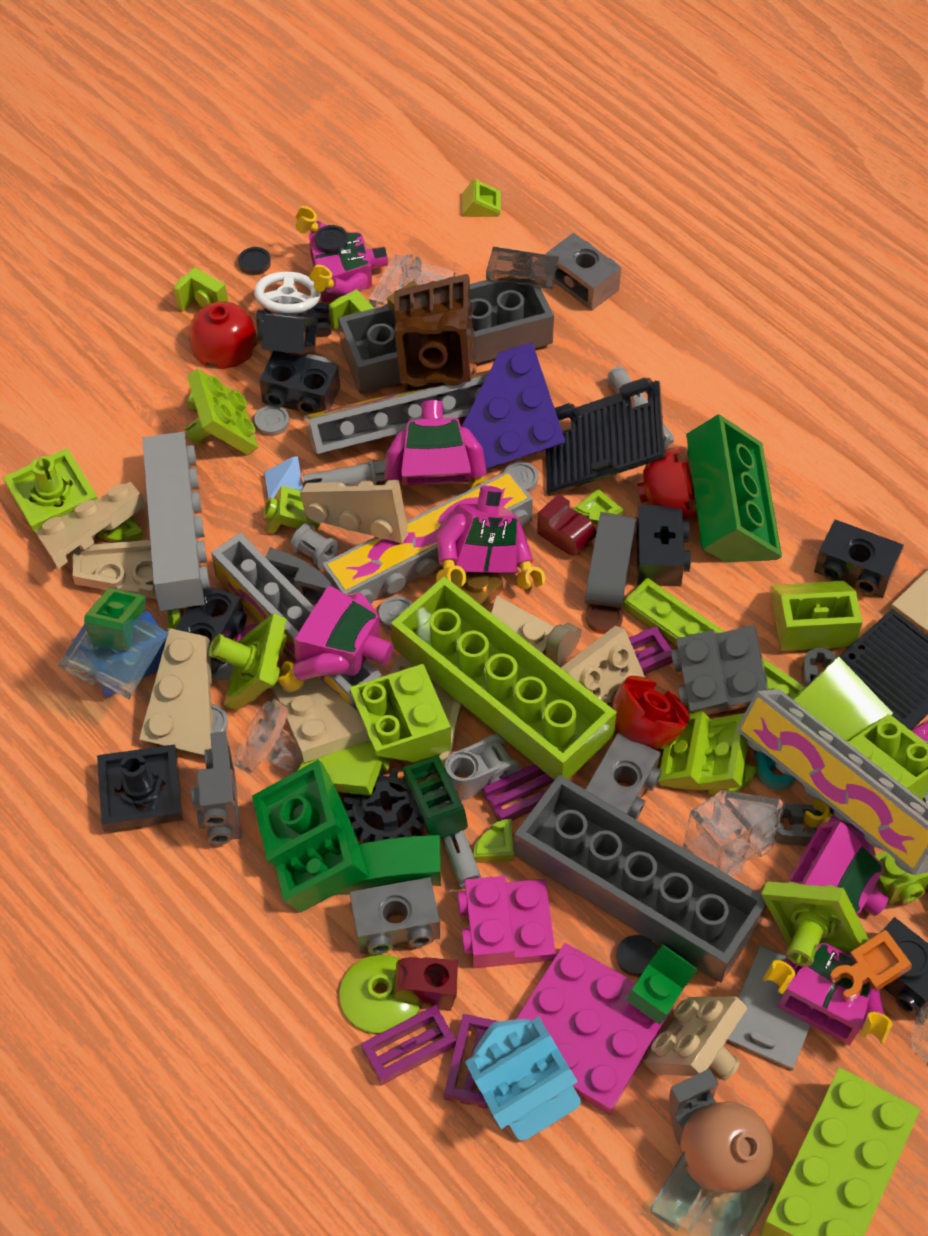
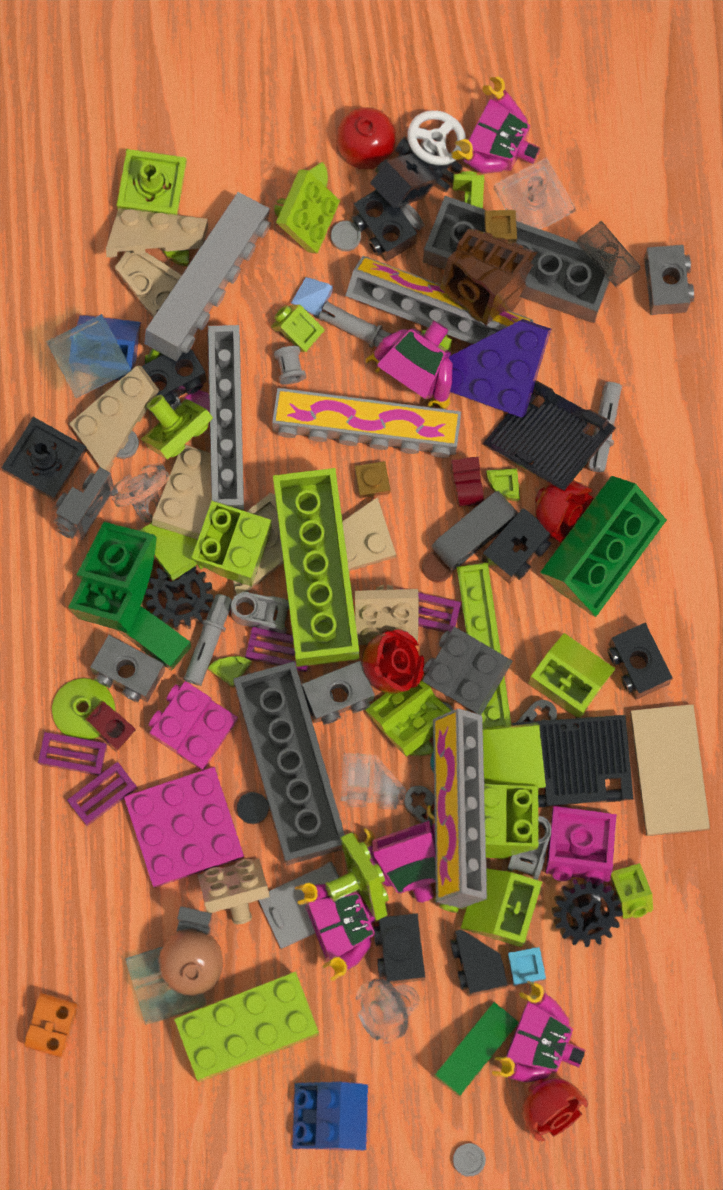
camera: 35 degrees right, 20 degrees up
(112, 618) = (100, 338): green slope -> none
(199, 287) = (381, 86): lime bracket -> none
(254, 261) = (444, 83): black piece -> none
(300, 574) = (260, 389): dark grey slope -> none
(331, 239) = (501, 116): black piece -> none
(336, 639) = (233, 458): dark pink torso -> none
(359, 508) = (337, 386): tan wing -> none
(391, 609) = (305, 457): light grey piece -> none
(441, 819) = (204, 631): dark green slope -> none
(481, 200) = (654, 154): lime slope -> none
(485, 540) = (393, 454): dark pink torso -> none
(523, 1076) = (112, 827): medium azure piece -> none
(525, 474) = (475, 416): light grey piece -> none
(562, 642) = (389, 565): dark tan tile -> none
(661, 984) = (246, 838): green slope -> none
(875, 962) = (371, 932): orange plate -> none

